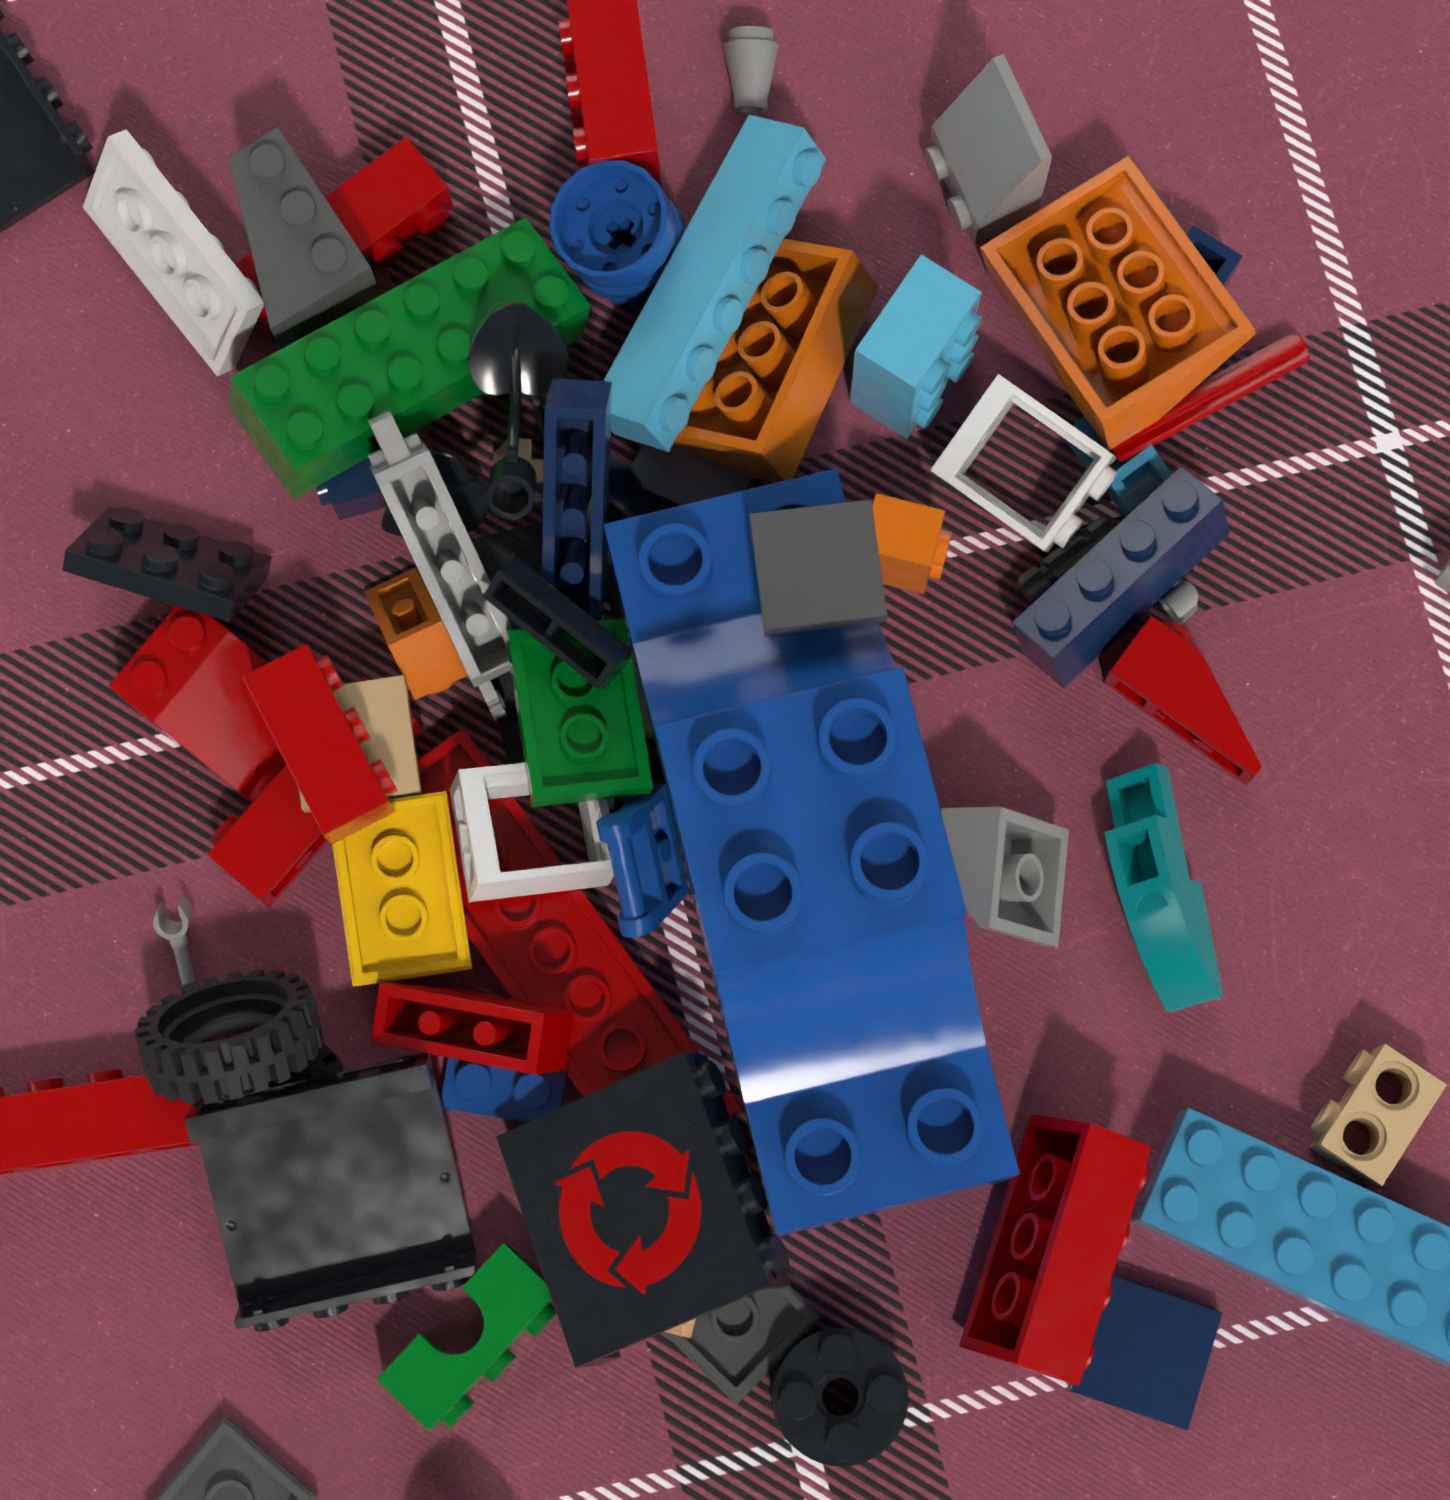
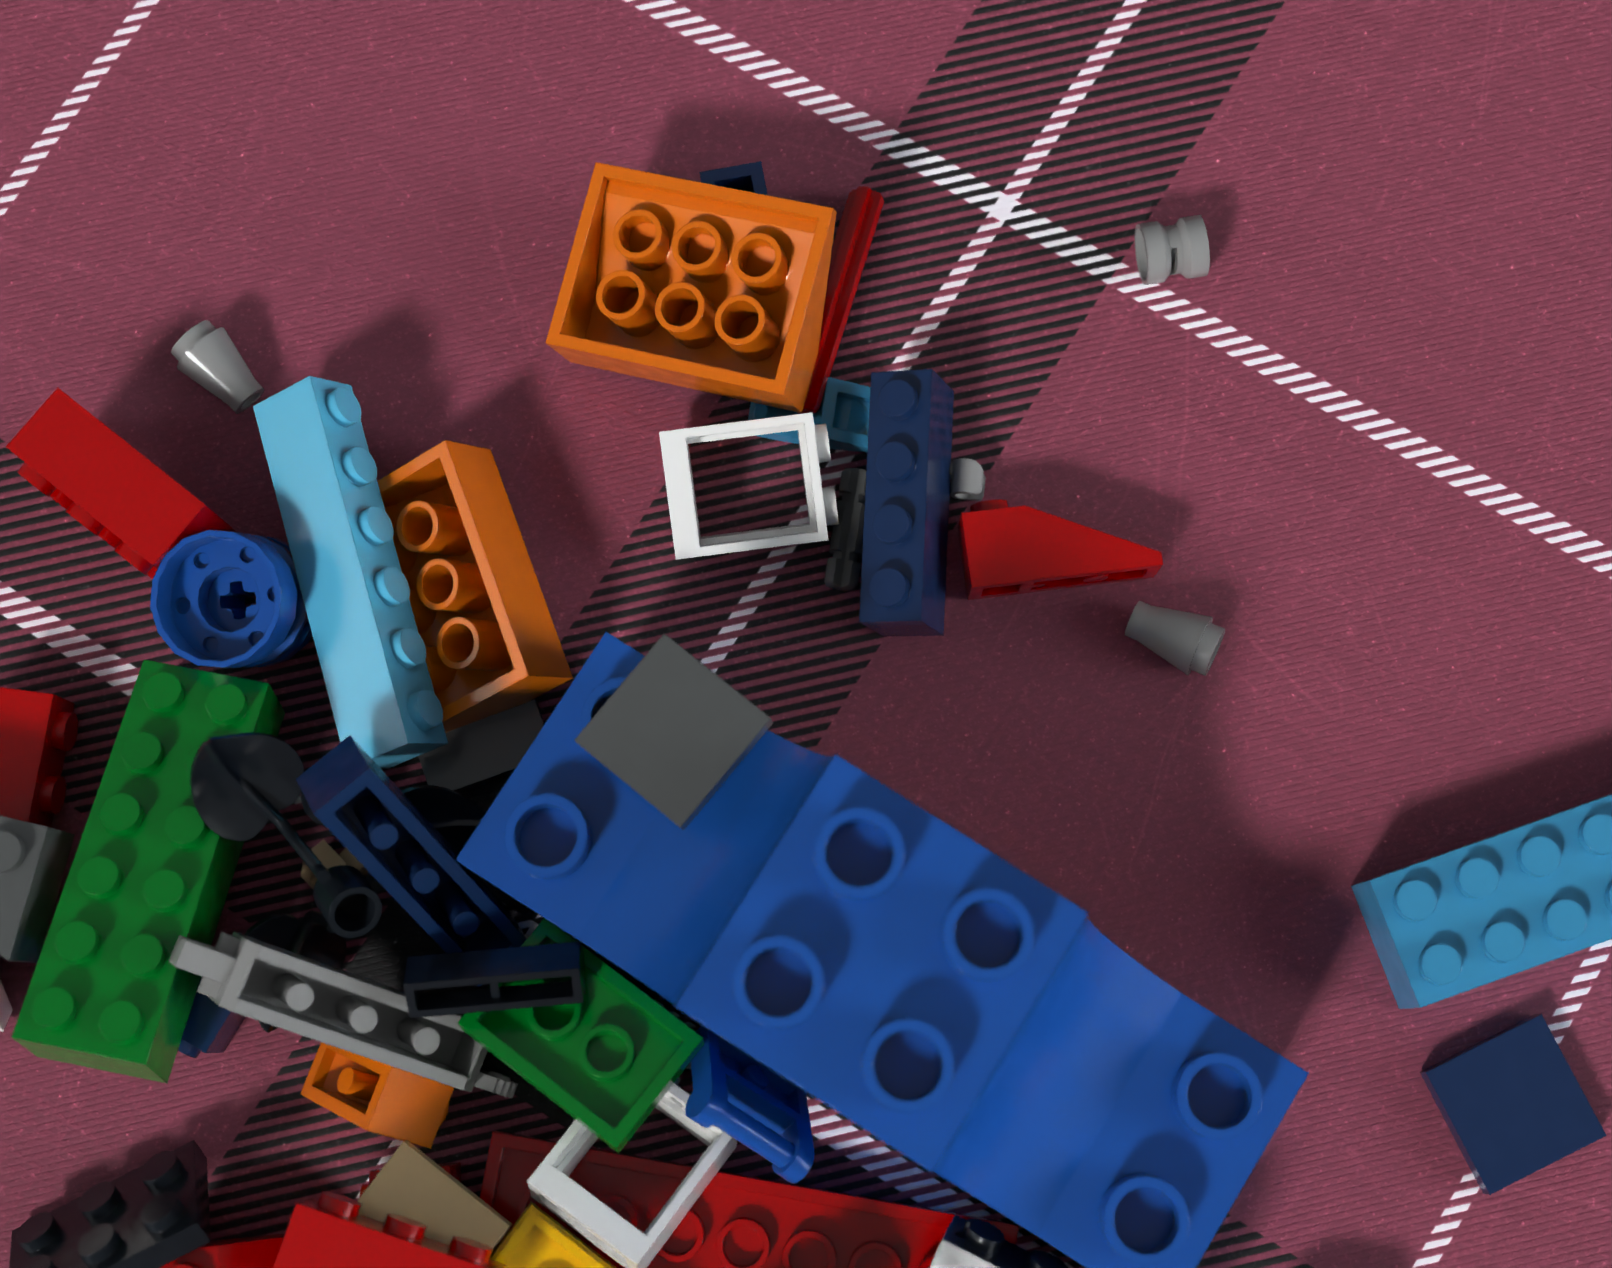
camera: 45 degrees left, 0 degrees up
(909, 542) = (717, 631): orange brick -> none
(916, 348) = (573, 470): medium azure brick -> none
(989, 154) = (482, 259): light grey slope -> none
(1009, 870) = (1052, 827): light grey slope -> none
(1056, 1247) = (1381, 1100): red brick -> none
(1155, 889) = (1172, 728): teal slope -> none
(1221, 837) = (1177, 636): none -> light grey cone
(1388, 1125) = (1524, 741): tan brick -> none

